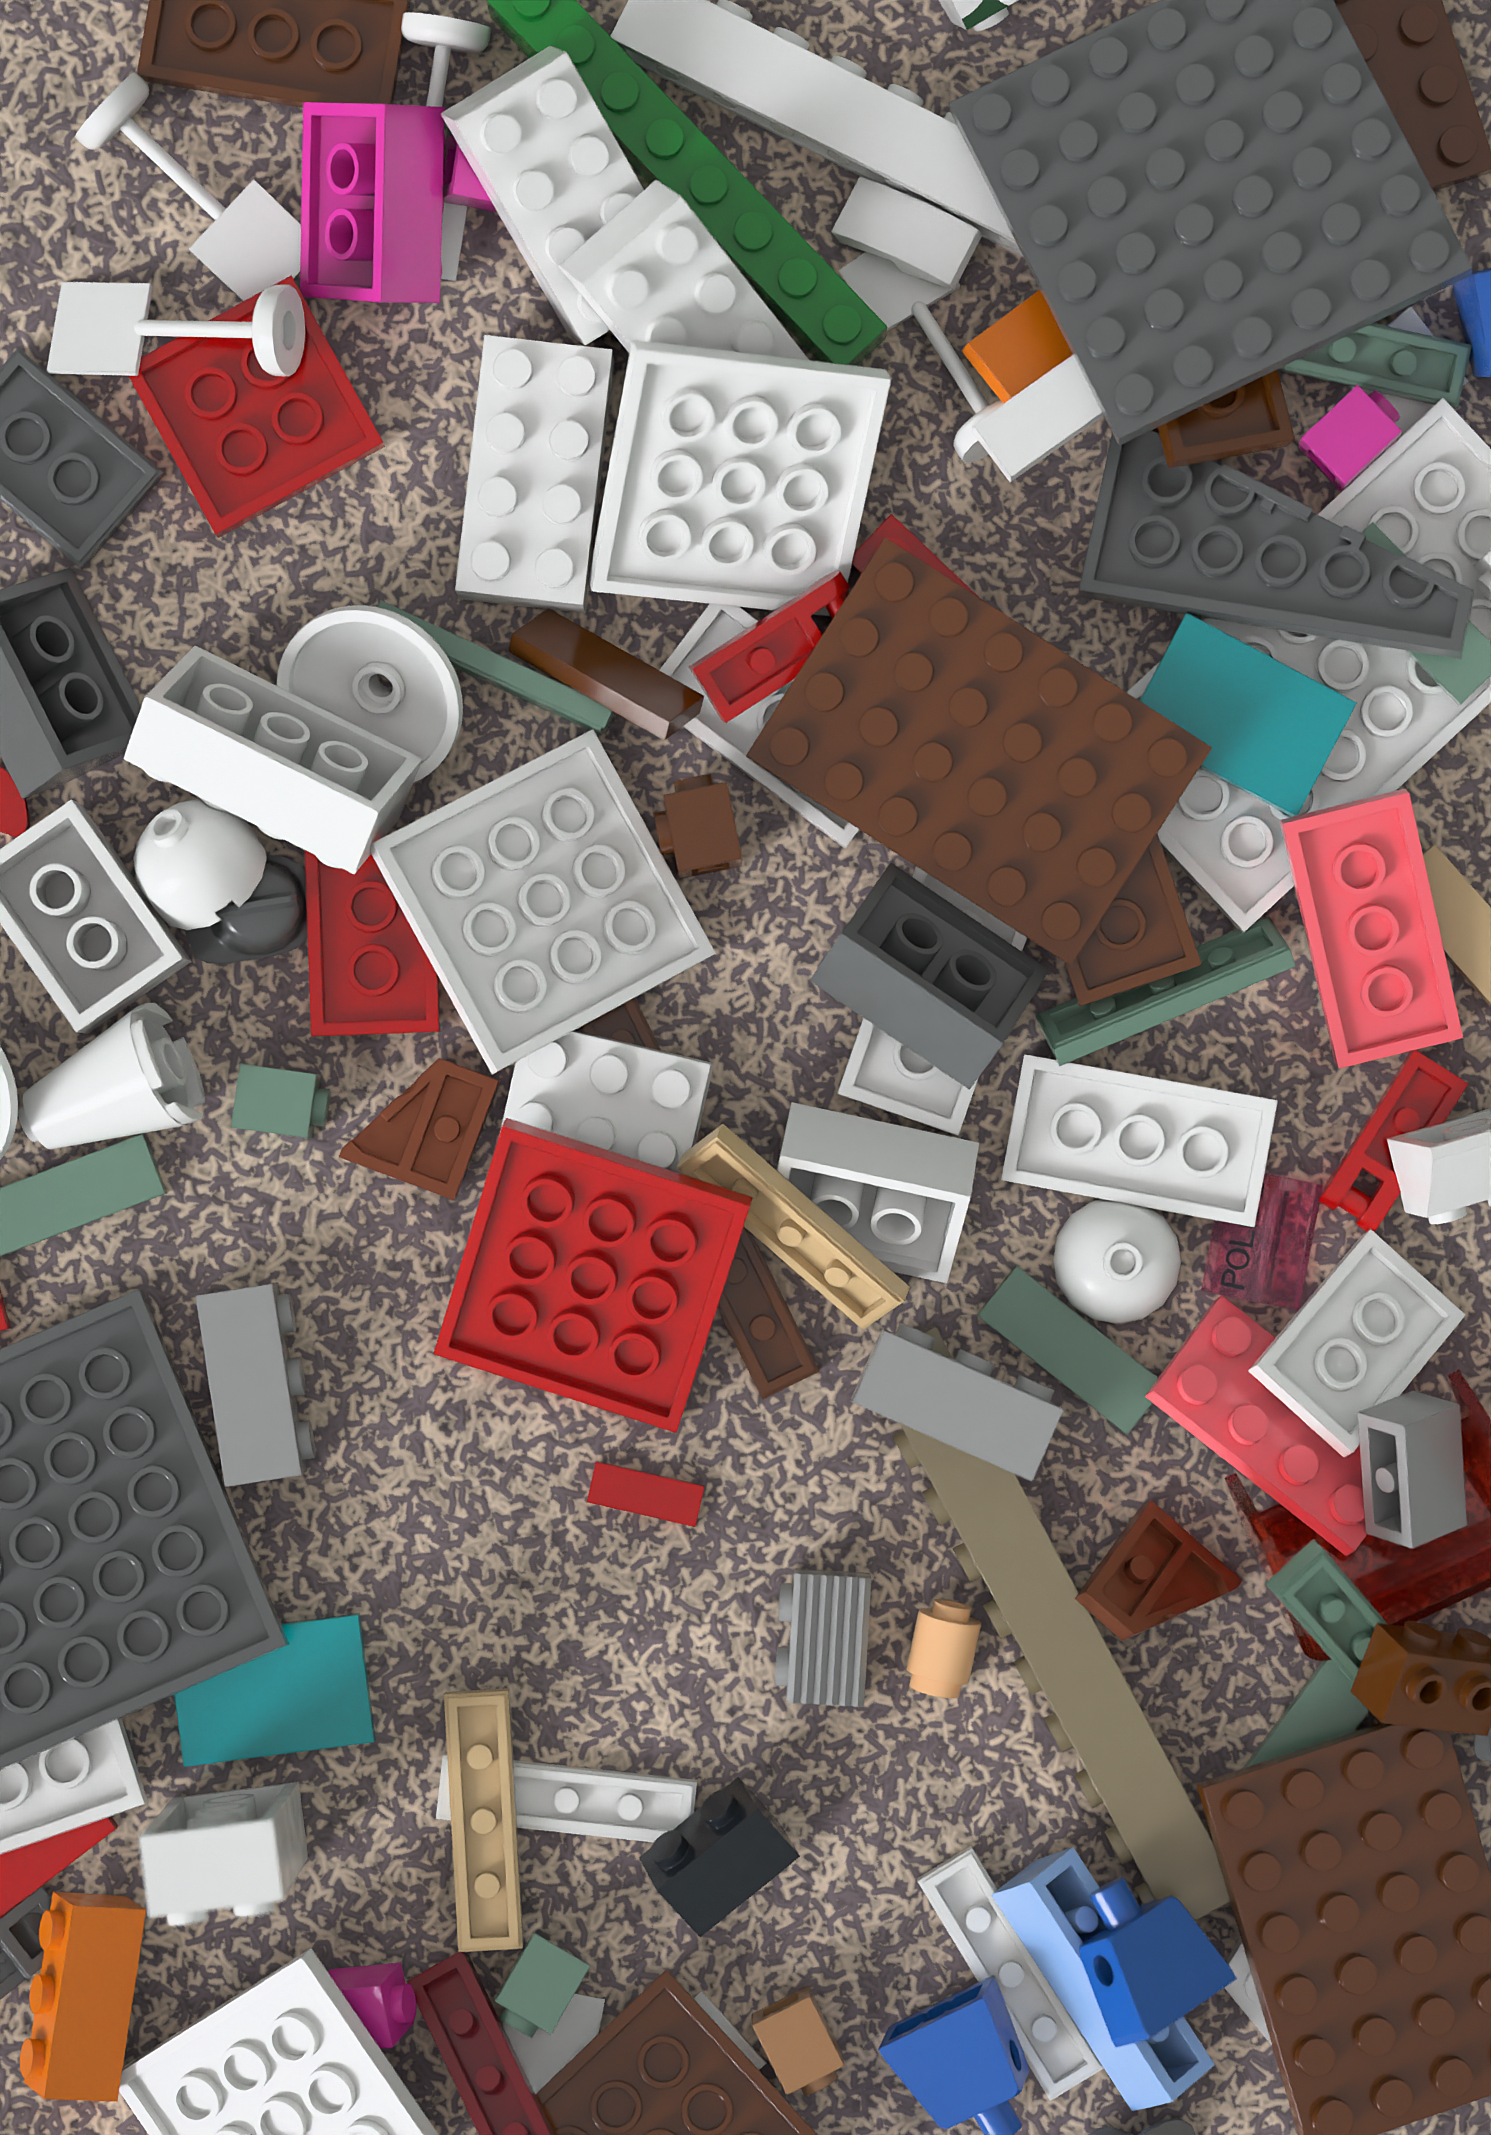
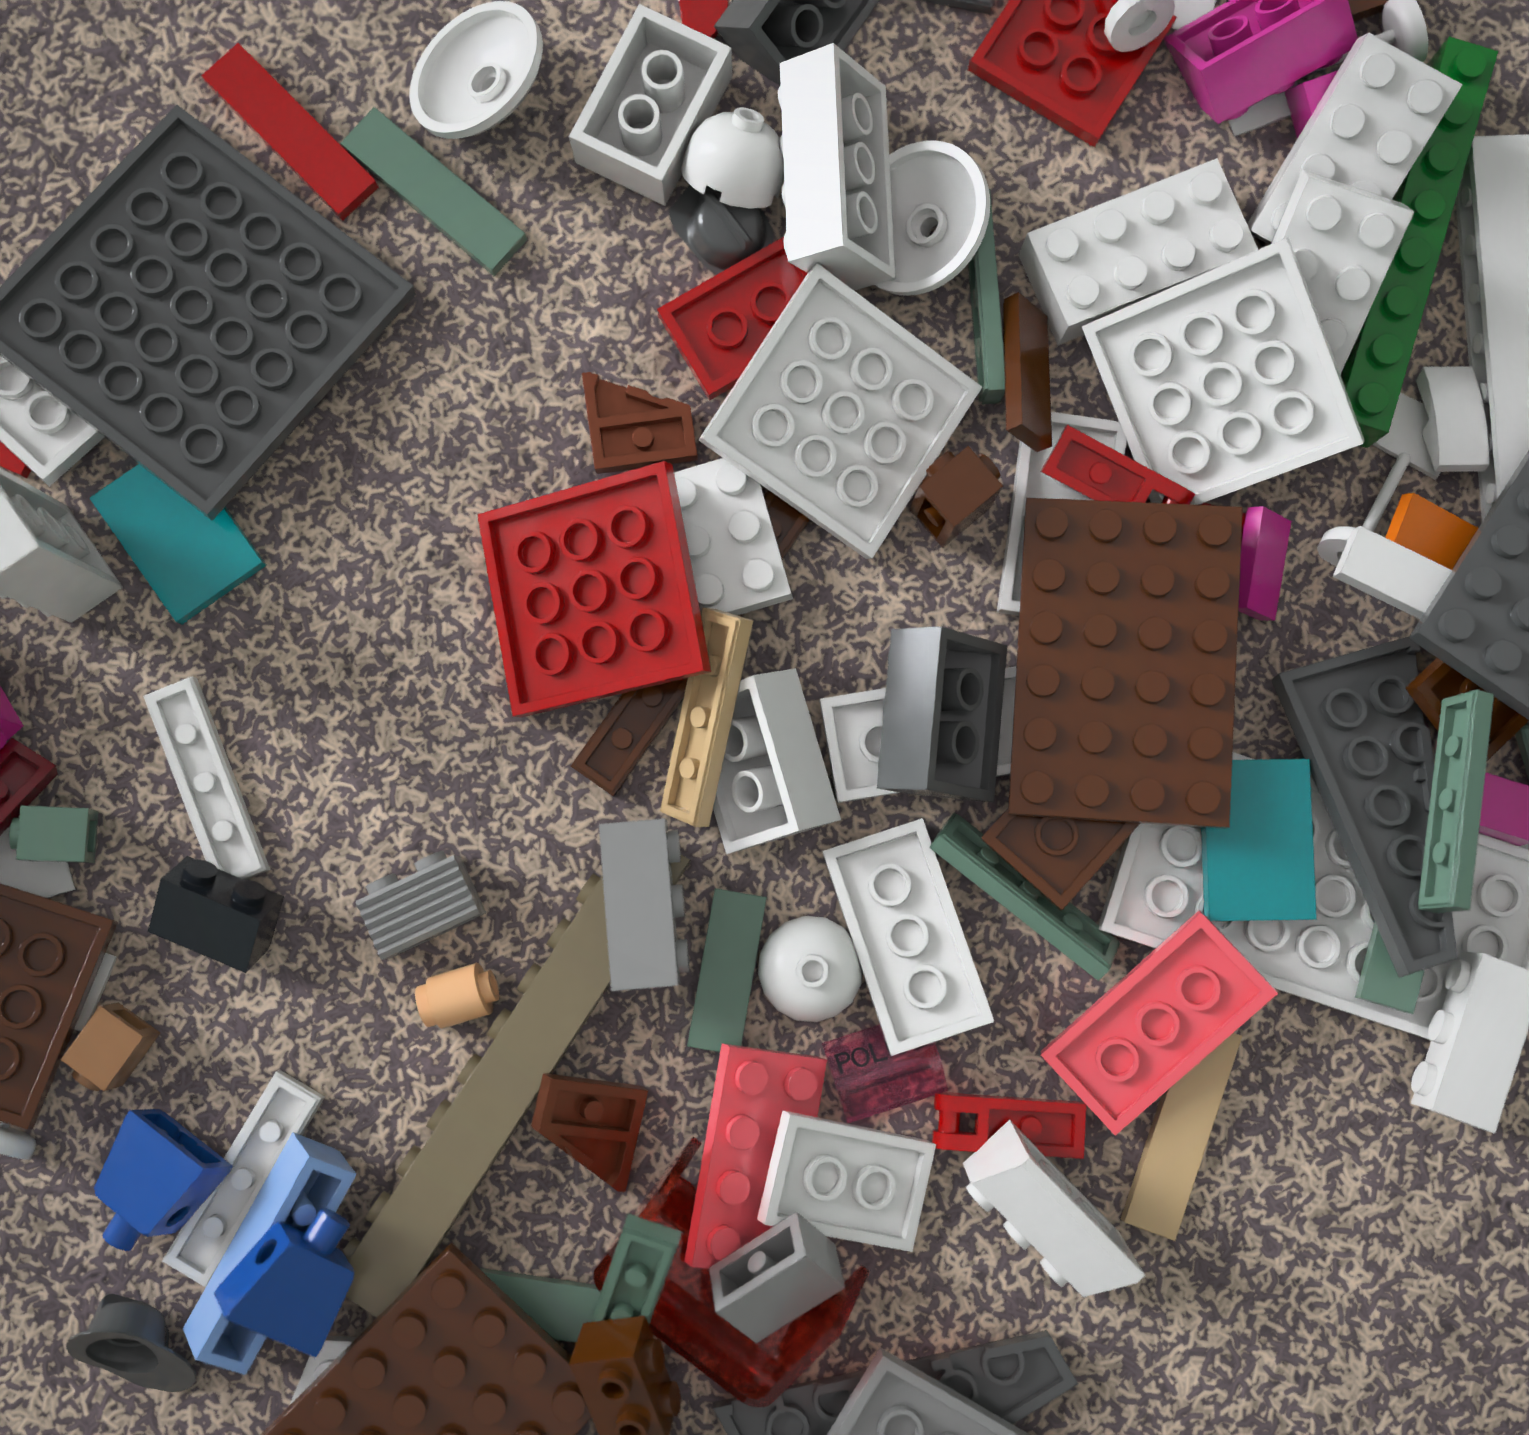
camera: 65 degrees right, 5 degrees down
(116, 1086) = (551, 194): white cone -> none
(254, 1383) = (388, 400): light grey brick -> none
(279, 1101) = (598, 311): sand green brick -> none
(483, 1820) = (156, 729): tan tile -> none
(645, 1493) = (458, 720): red piece -> none
(950, 535) = (1262, 562): none -> dark pink tile
(1314, 499) = (1456, 803): none -> sand green tile

